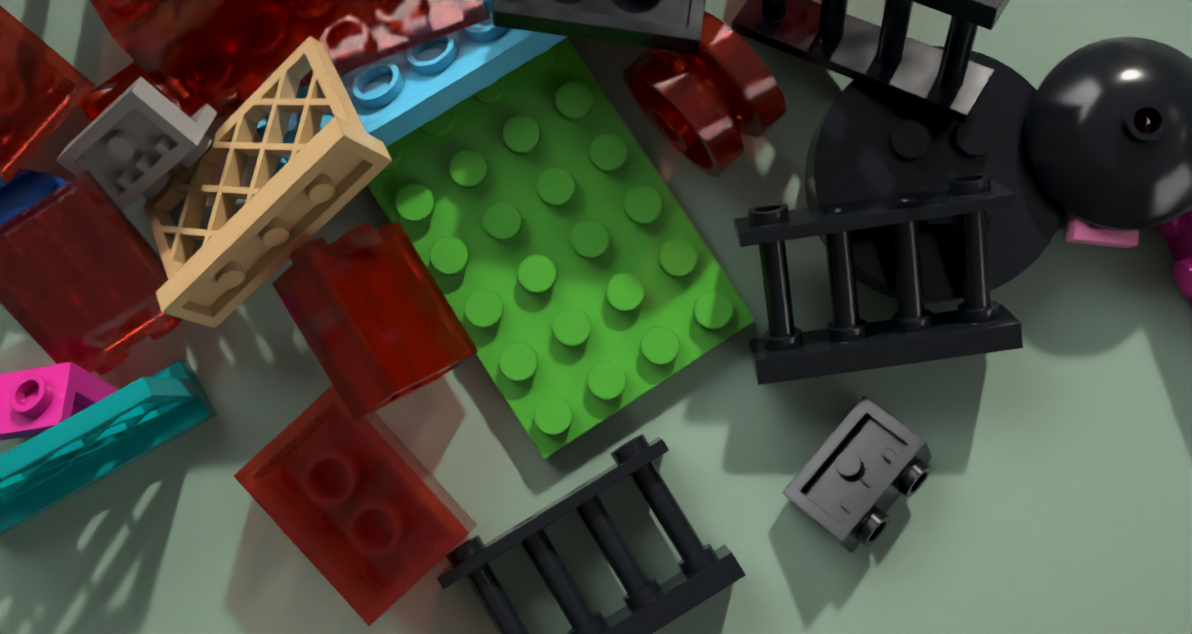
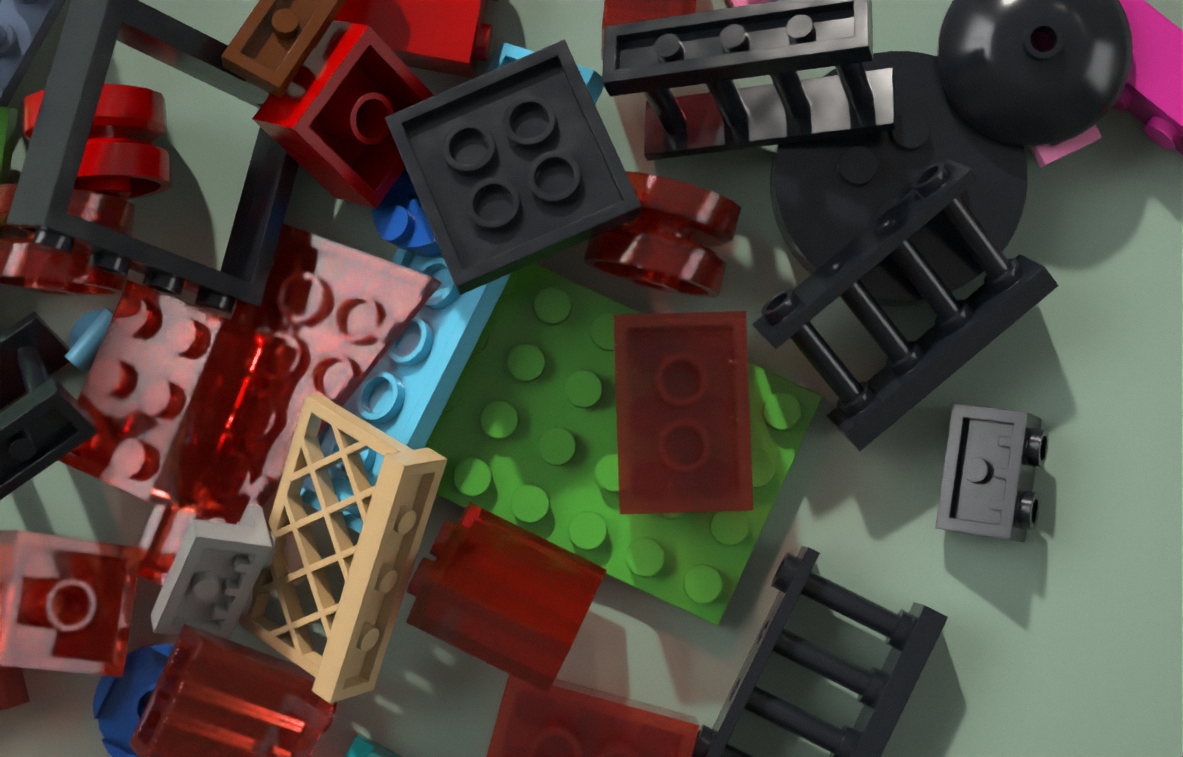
camera: 25 degrees left, 0 degrees up
(623, 250) = (682, 412): none -> clear red brick

